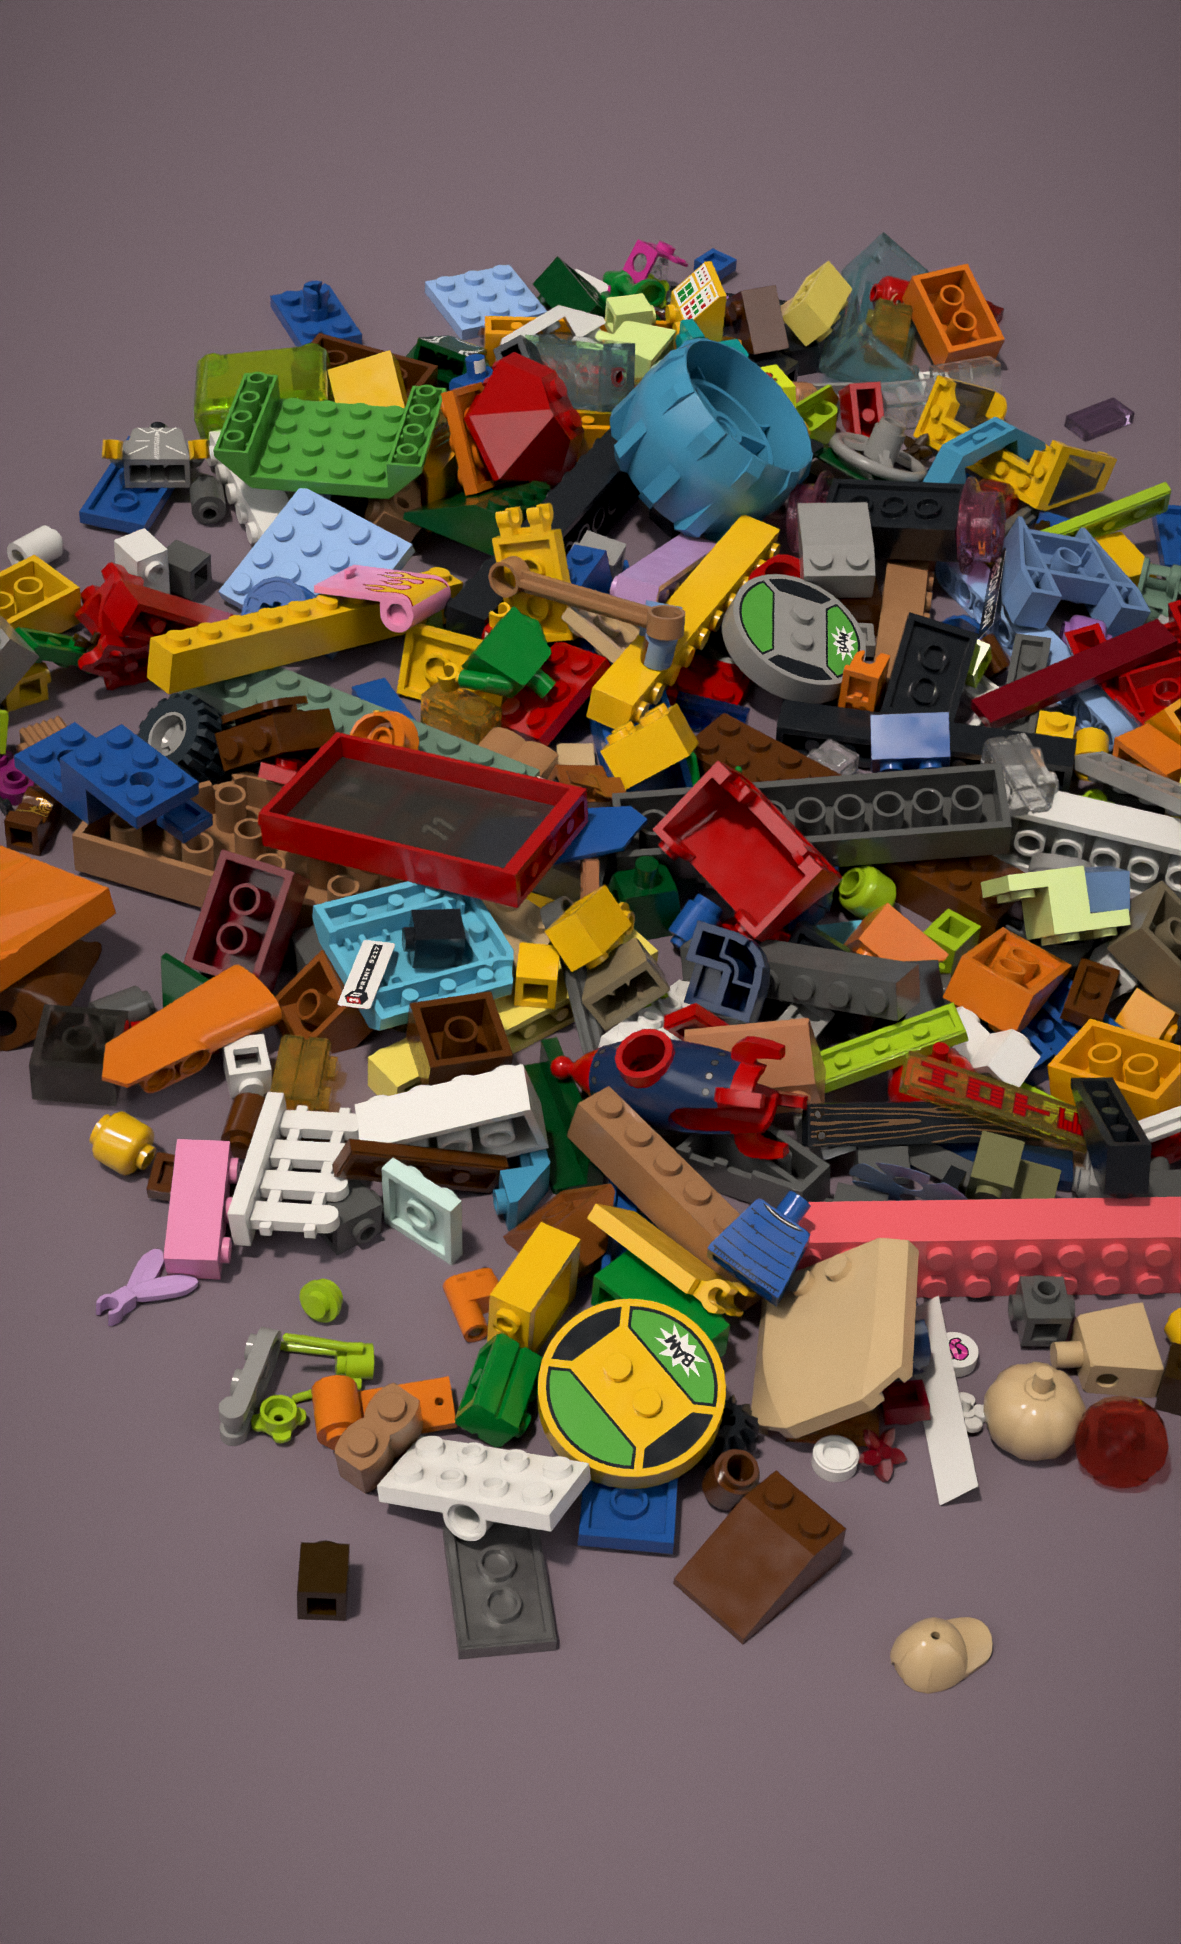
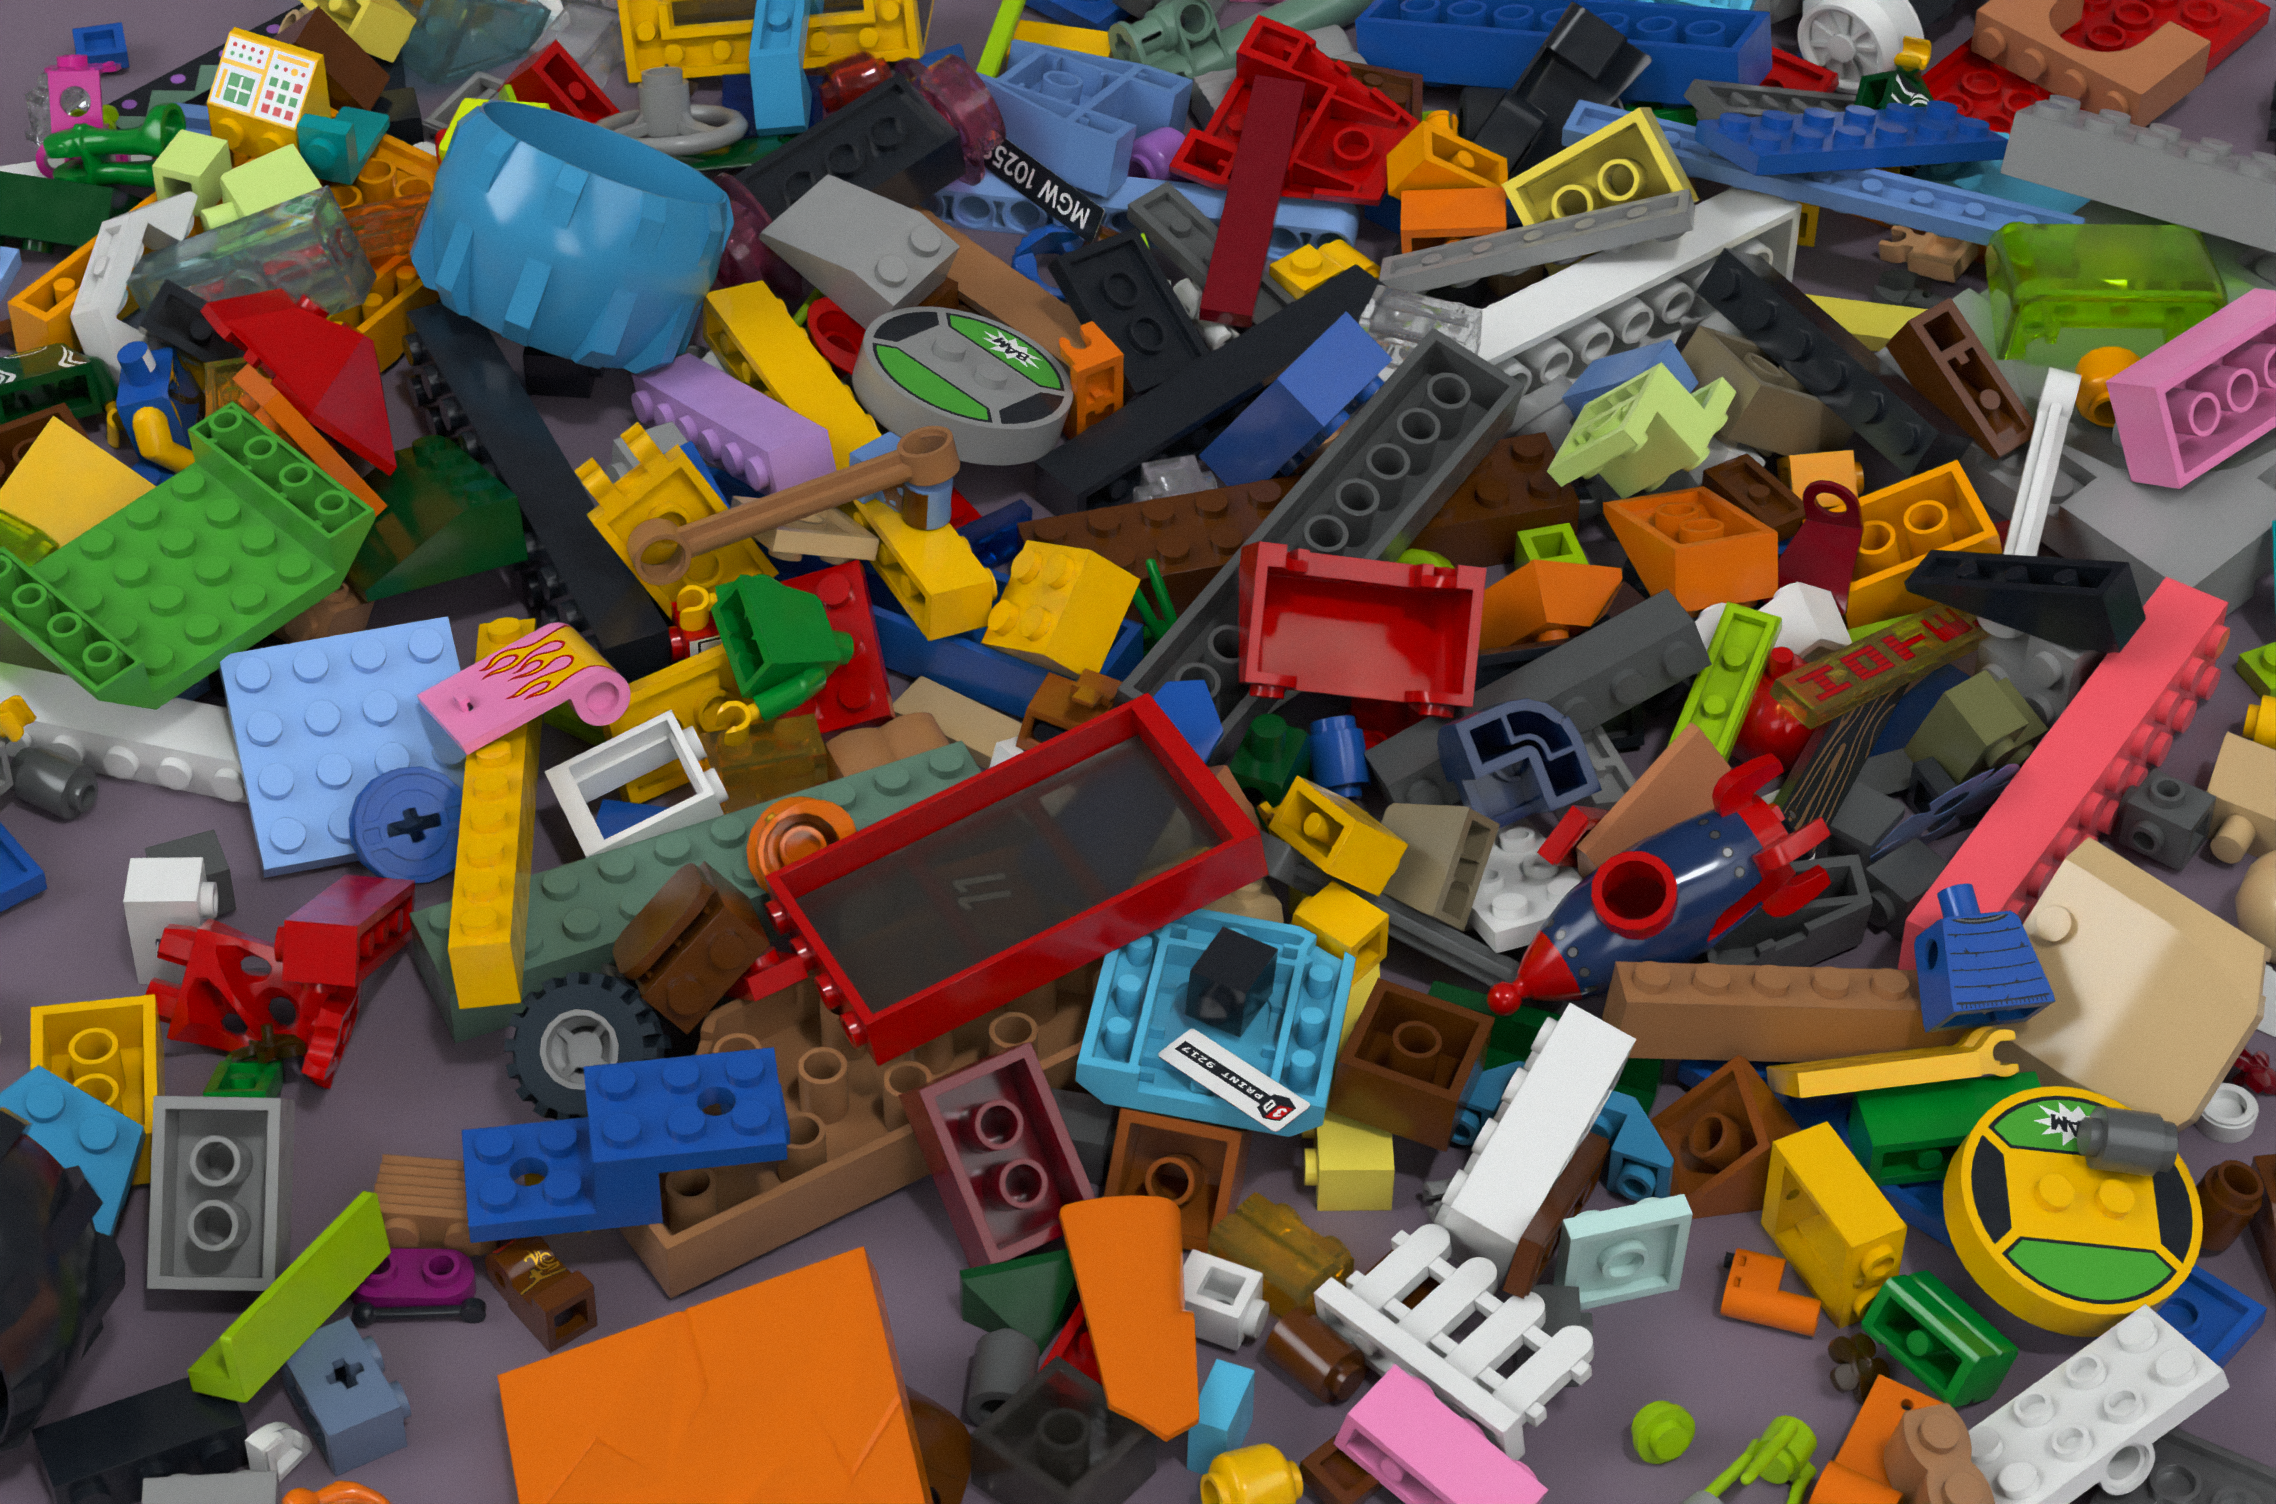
camera: 50 degrees left, 0 degrees up
(164, 1105) = (1223, 1414): none -> medium azure piece
(369, 655) = (625, 760): none -> white window
(452, 1364) = (1856, 1365): none -> dark brown plant
(682, 1378) = (2127, 1141): none -> dark grey brick
(1068, 1039) = (1825, 545): none -> dark red piece

